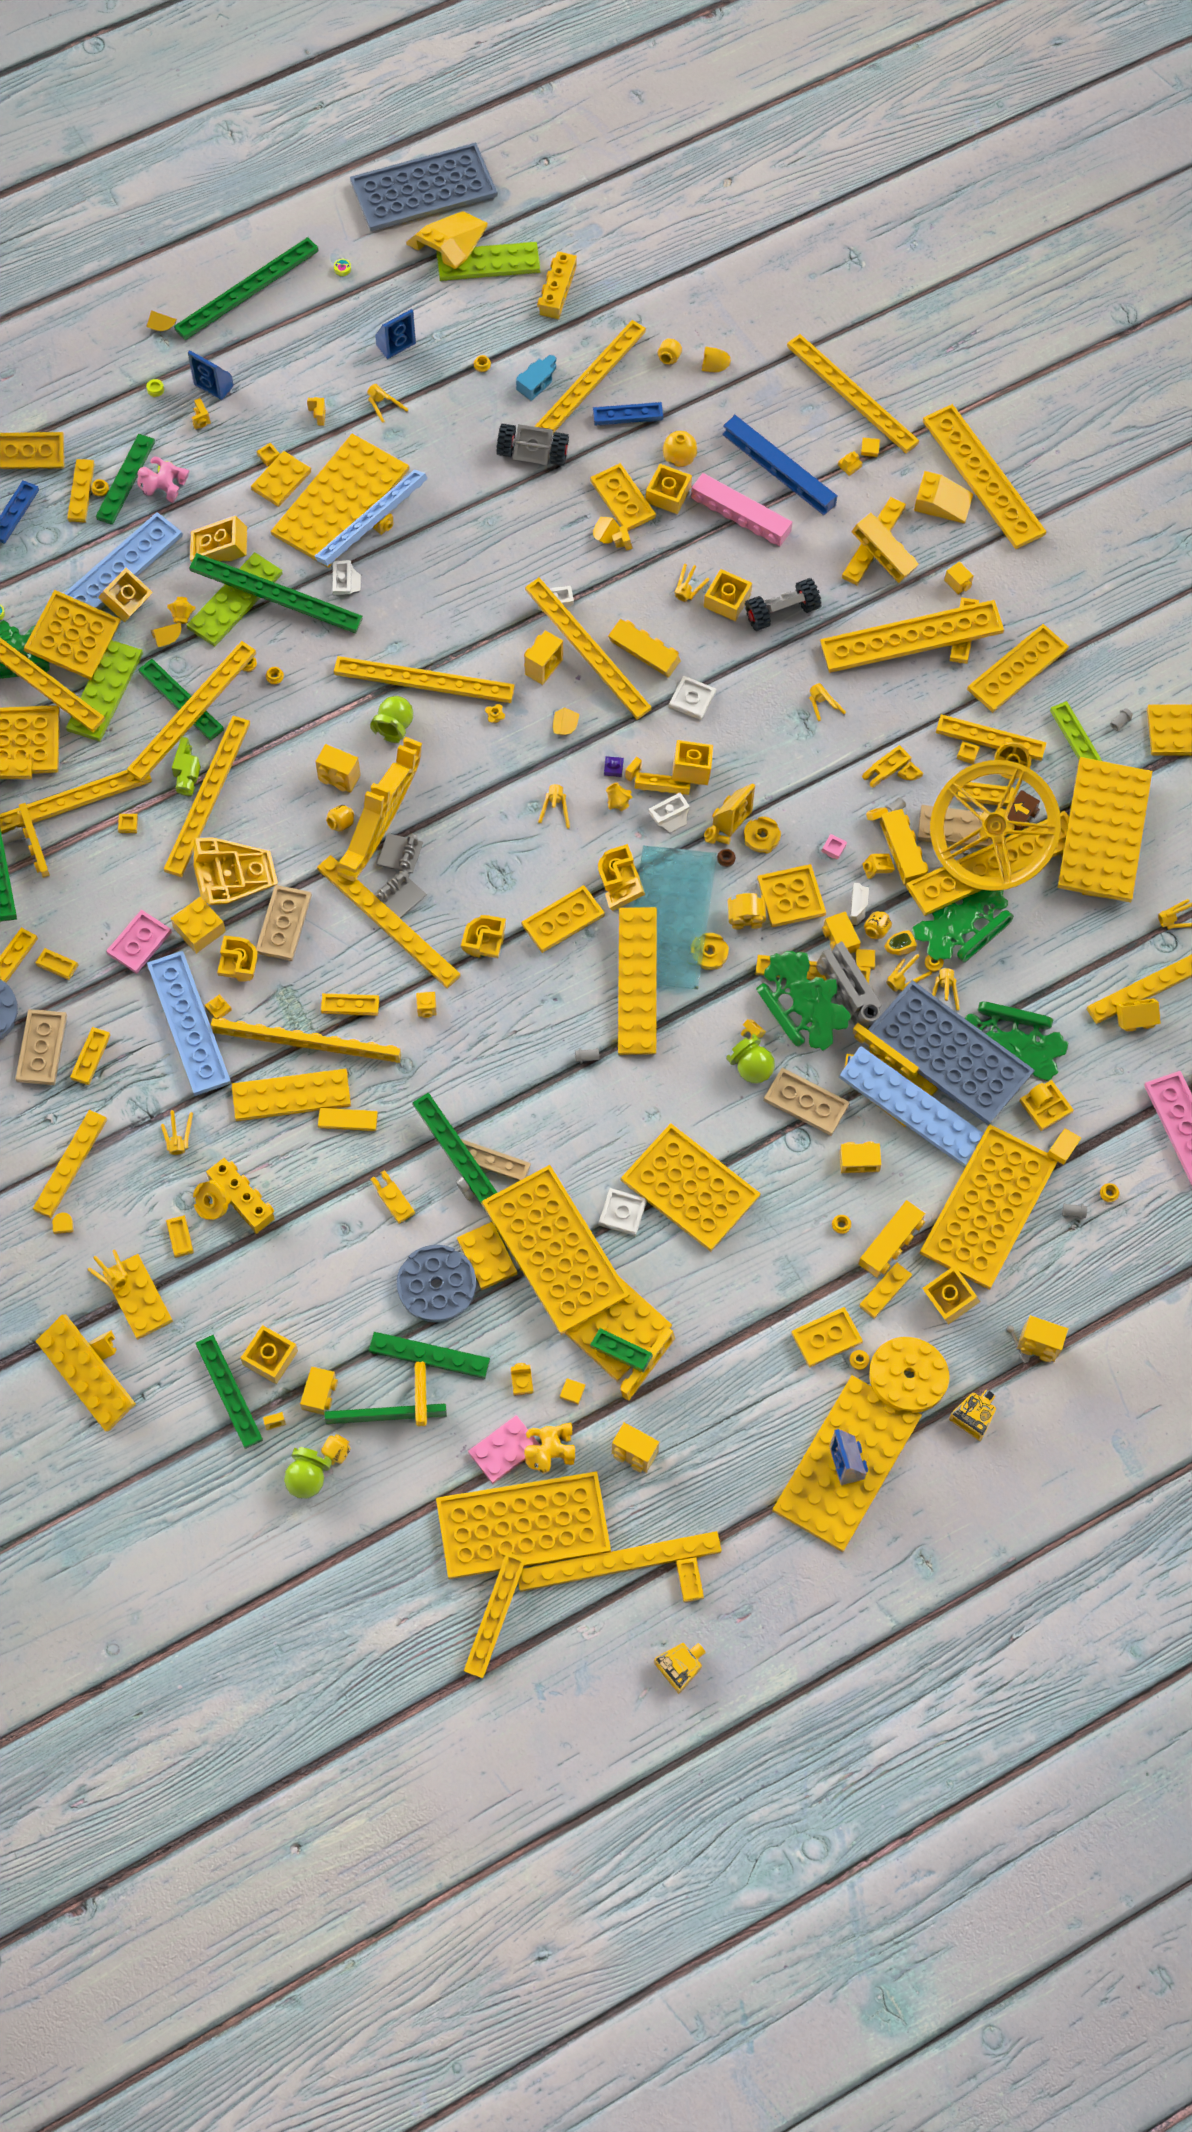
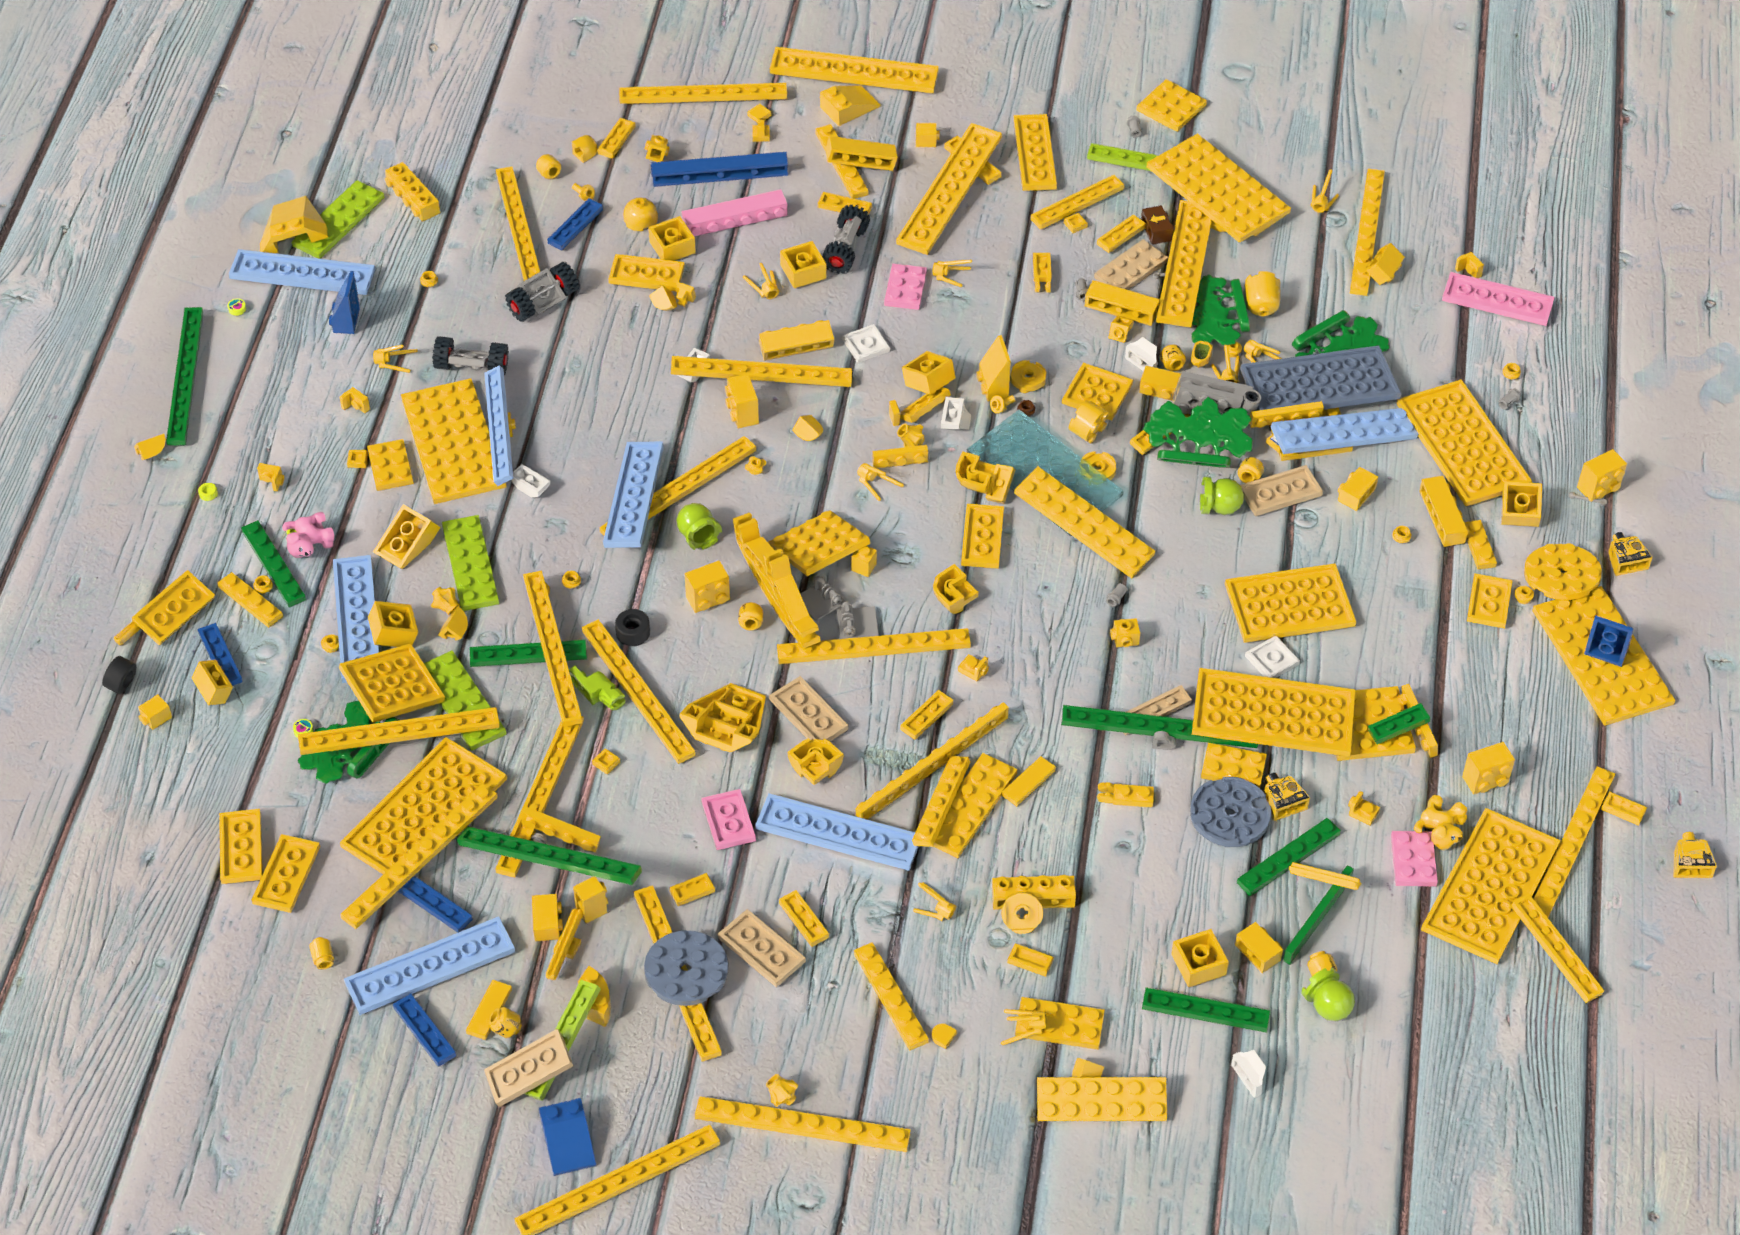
camera: 50 degrees left, 15 degrees down
(82, 565) = (330, 647): none -> yellow plate
(193, 1462) = (1250, 1070): none -> white slope
(198, 924) = (755, 768): yellow brick -> none
(209, 376) = (246, 442): blue slope -> none
(218, 1007) = (842, 803): yellow tile -> none
(262, 758) = (635, 636): none -> black tyre
(271, 1072) = (941, 801): none -> yellow plate
(274, 1421) = (1260, 993): yellow tile -> none
(276, 593) = (499, 528): green plate -> none
(385, 654) = (633, 494): none -> light blue plate
(412, 280) = (299, 271): none -> light blue plate
(423, 186) = (223, 213): sand blue plate -> none
(423, 448) = (445, 355): none -> plate
(448, 811) = (819, 542): none -> yellow plate
(462, 854) = (864, 561): none -> yellow brick
(482, 1312) = (1285, 796): none -> yellow torso
(536, 377) = (481, 254): dark azure hinge -> none
(549, 1087) = (1125, 632): none -> yellow brick
(572, 1391) = (1400, 784): yellow tile -> none
(591, 805) = (900, 456): none -> yellow plate
(613, 766) = (878, 424): dark purple tile -> none
(668, 395) = (585, 192): none -> yellow plate
(748, 372) = (616, 138): none -> yellow tile
(753, 1028) = (1191, 481): yellow tile -> none
(756, 407) = (656, 148): none -> yellow brick
(779, 682) = (905, 286): none -> bright pink plate
(806, 1064) = (1250, 470): none -> yellow head
(828, 577) = (836, 202): none -> yellow tile
(834, 847) = (1082, 340): bright pink tile -> none
(876, 813) = (1077, 301): yellow tile -> none
(910, 772) = (1059, 263): yellow tile -> none
(994, 824) = (1168, 230): yellow wheel -> none
(1009, 945) = (1262, 293): none -> yellow cylinder
(1015, 753) = (1112, 198): yellow cylinder -> none
(1046, 1105) = (1410, 360): yellow plate -> none
(1064, 1146) = (1453, 370): yellow tile -> none

